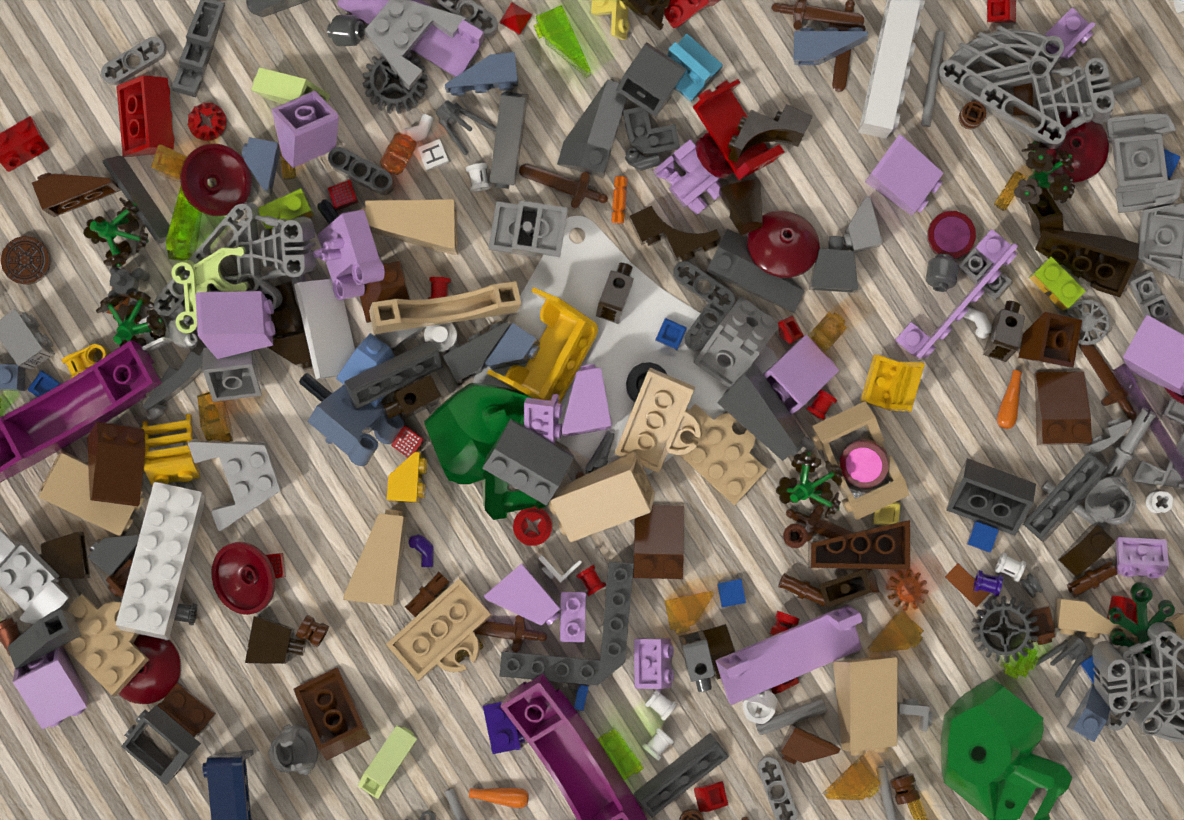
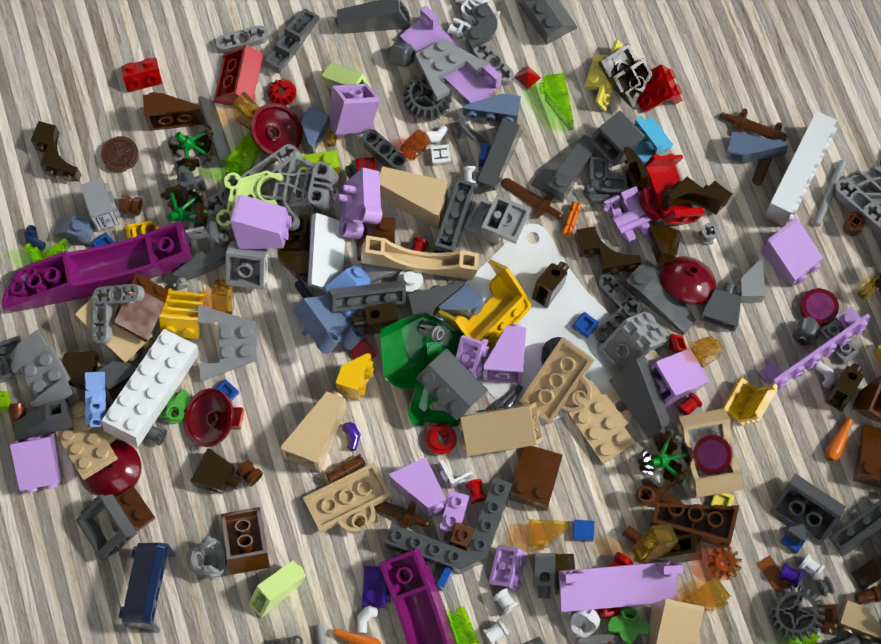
camera: 15 degrees right, 15 degrees down
(60, 327) = (130, 205): none -> reddish brown wheel
(74, 477) = (106, 304): none -> light grey beam
(97, 595) = (95, 398): none -> light blue hips
(199, 566) = (176, 404): none -> bright green plate
(254, 534) = (228, 389): none -> blue tile
(474, 238) = (455, 217): none -> dark grey piece
(487, 137) = (483, 154): none -> blue tile
(491, 402) = (434, 332): none -> light grey pin
(499, 766) = (362, 618): none -> white arm
(587, 644) = (460, 535): none -> reddish brown bracket
(685, 119) = (635, 170): none -> dark brown slope
(801, 175) = (710, 239): none -> light grey bush
(814, 698) = (628, 628): none -> bright green plate
(821, 593) = (655, 543): none -> clear yellow slope
(985, 533) = (797, 534): none -> dark grey slope

